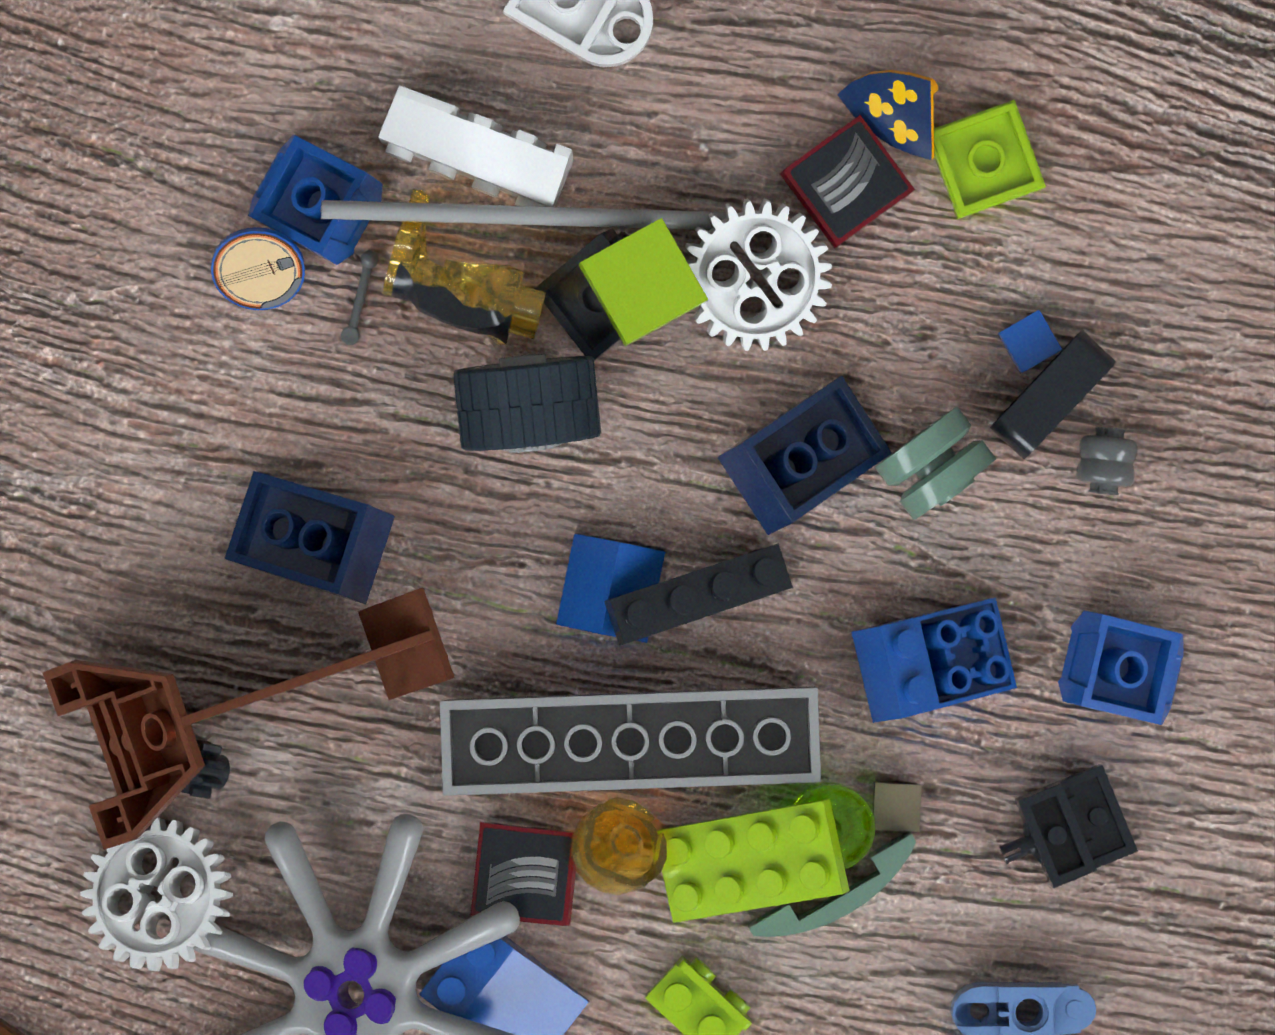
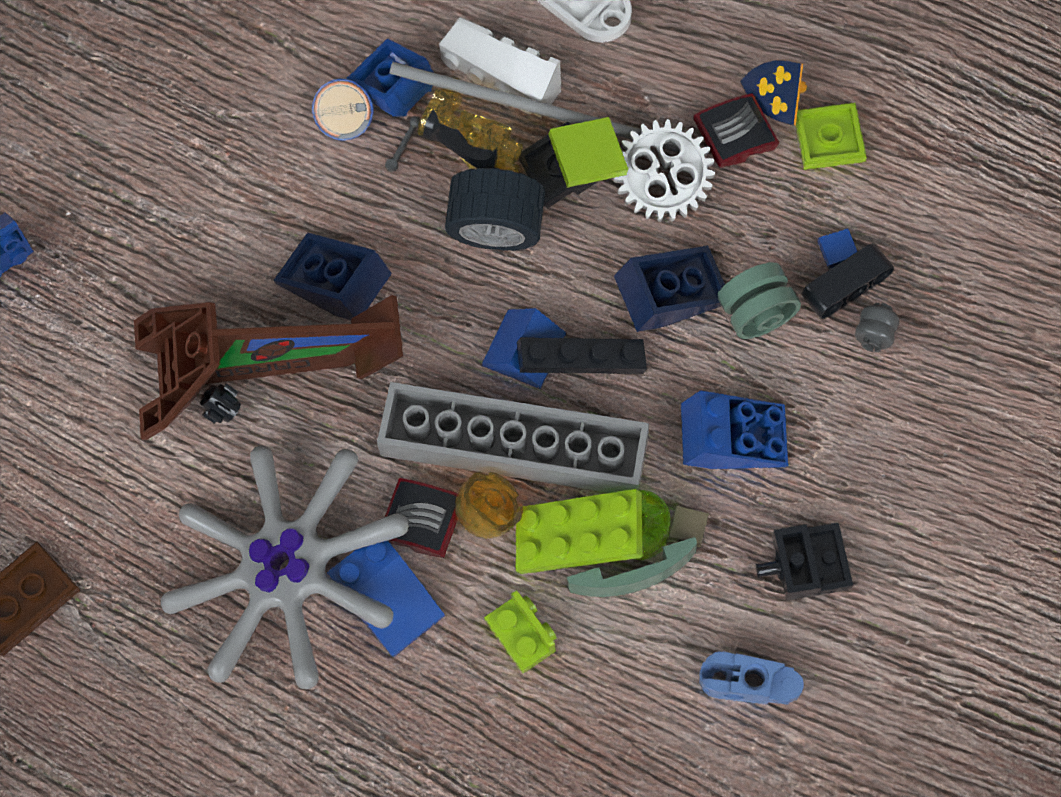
camera: 20 degrees right, 20 degrees down
(189, 916) = (167, 478): white gear -> none
(1121, 667) = (865, 460): blue slope -> none

